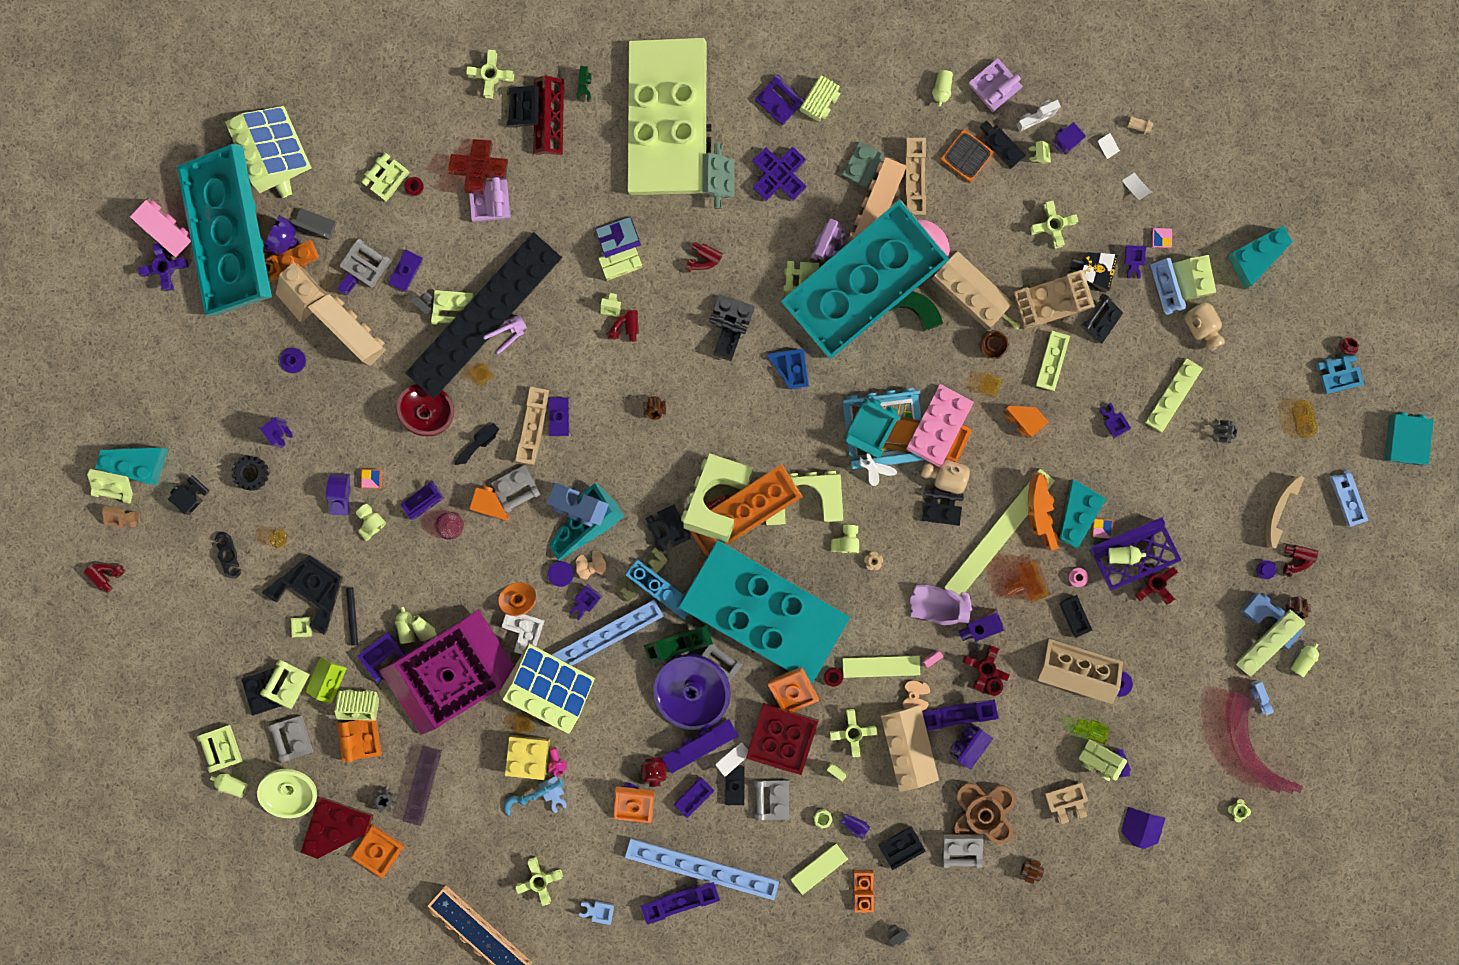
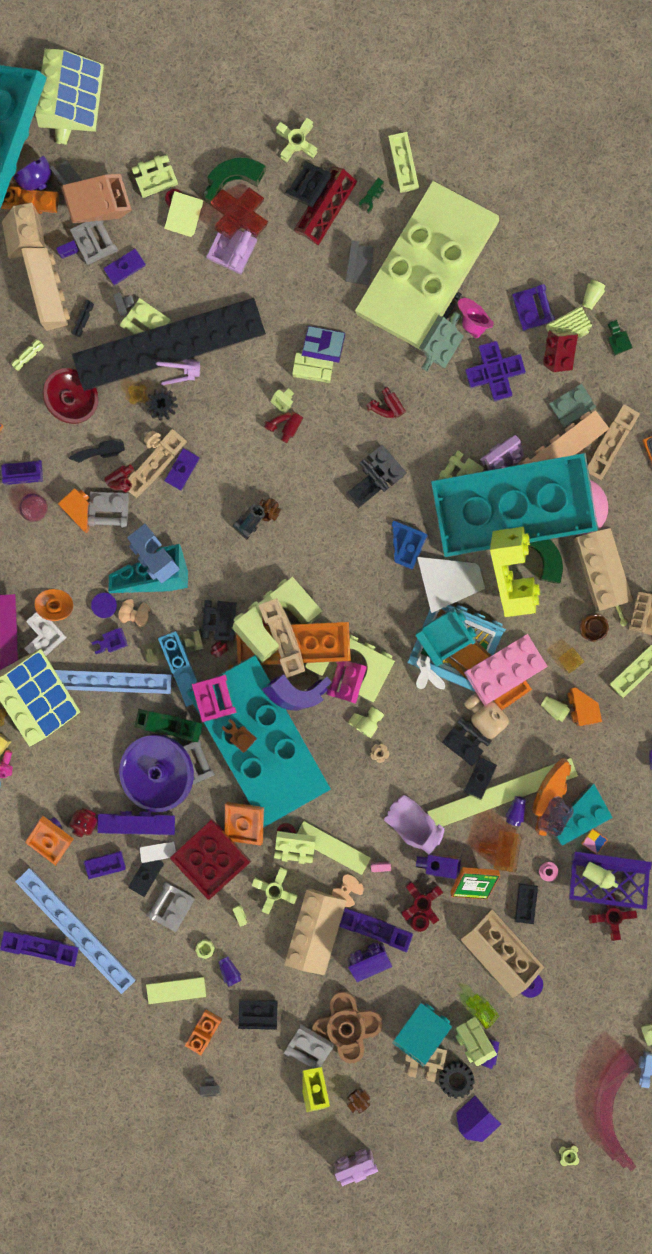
camera: 30 degrees right, 0 degrees up
(347, 225) = (97, 199): none -> nougat slope
(366, 396) = (27, 354): none -> yellowish green axle
(395, 336) = (82, 318): none -> black axle
(430, 195) = (183, 214): none -> yellowish green sticker
(450, 131) = (233, 169): none -> dark green arch
(503, 376) = (155, 407): none -> black gear
(510, 457) = (119, 478): none -> dark red plant
(518, 406) = (152, 439): none -> tan plate
(594, 39) = (403, 162): none -> yellowish green plate
(607, 149) = (359, 263): none -> dark grey panel
(644, 427) = (248, 522): none -> black piece
(682, 553) = (219, 649): none -> dark red plate
(699, 602) = (207, 699): none -> dark pink plate
(731, 507) = (283, 634): none -> tan slope
(734, 138) = (474, 317): none -> dark pink piece
(747, 617) = (241, 737): none -> reddish brown plate
(769, 559) = (288, 697): none -> dark purple arch
(813, 514) = (351, 681): none -> dark pink plate
(824, 58) = (593, 294): none -> yellowish green cone
(825, 123) = (560, 351): none -> dark red bracket
(846, 377) = (449, 581): none -> white sticker
(847, 681) = (294, 843): none -> yellowish green plate
(869, 86) = (619, 340): none -> dark green plate
(883, 319) = (517, 595): none -> neon yellow plate
(973, 532) = (480, 778): none -> black plate
(989, 884) = (314, 1090): none -> neon yellow slope
(1002, 434) = (555, 708): none -> yellowish green cone
(1021, 543) = (516, 812): none -> dark purple cone
(1022, 624) = (475, 883): none -> tile
(1053, 781) = (422, 1034): none -> teal brick
(1059, 528) = (555, 818): none -> piece
(1063, 929) = (355, 1168): none -> lavender plate
(1116, 805) = (461, 1090): none -> black tyre

